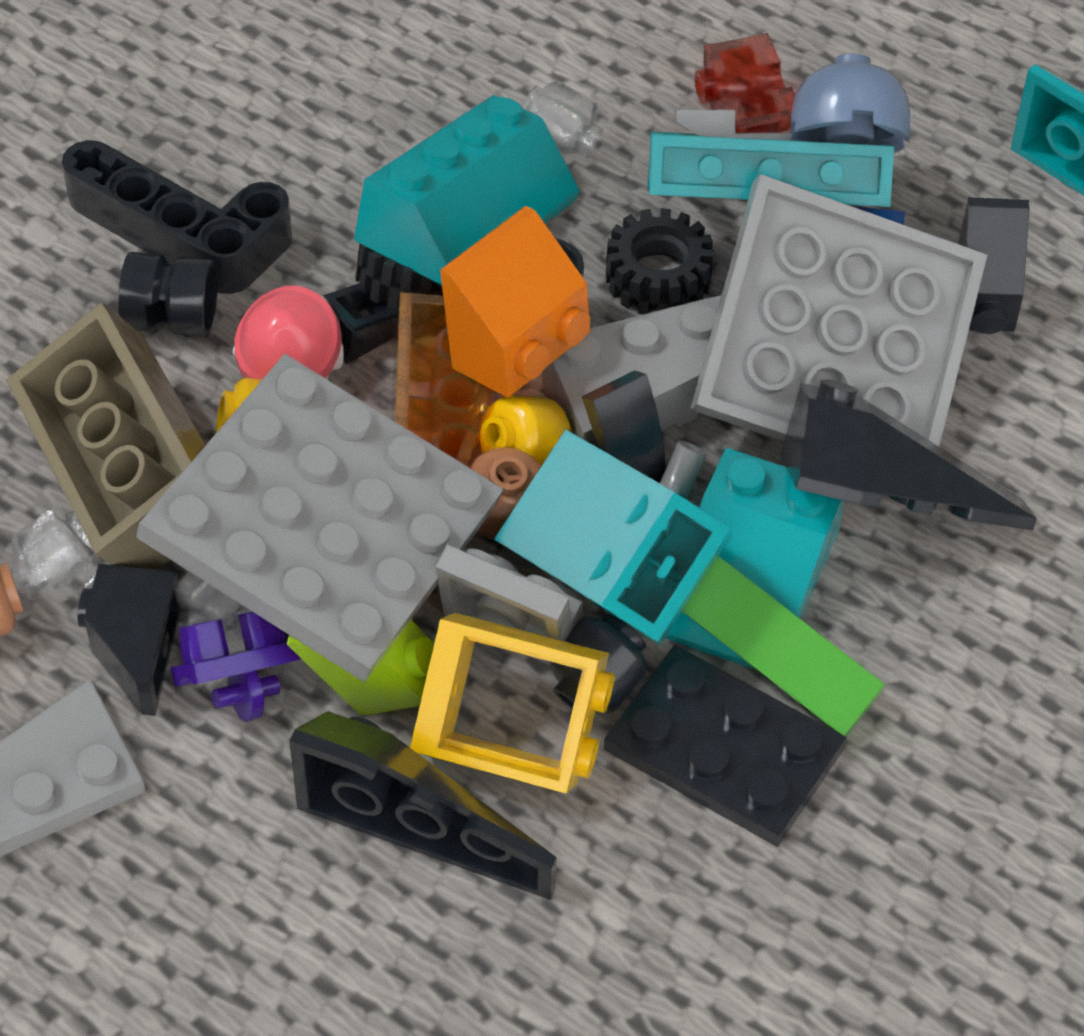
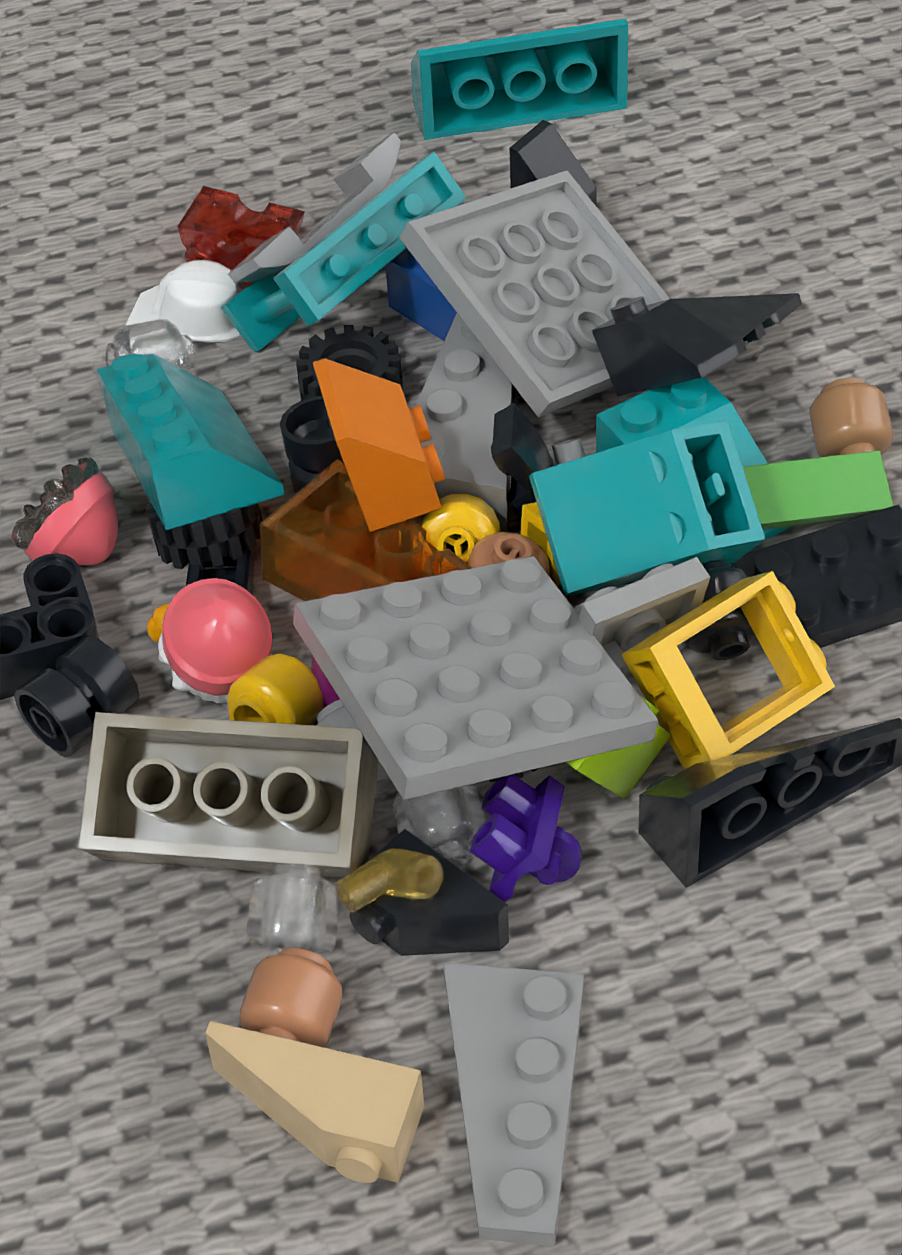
camera: 50 degrees left, 5 degrees down
(112, 584) = (391, 874): none -> clear yellow arm
(332, 177) = (73, 518): none -> coral hair
(644, 106) = (192, 301): none -> white piece
(851, 105) = (375, 149): sand blue cylinder -> none
(912, 647) = (850, 419): none -> medium nougat head

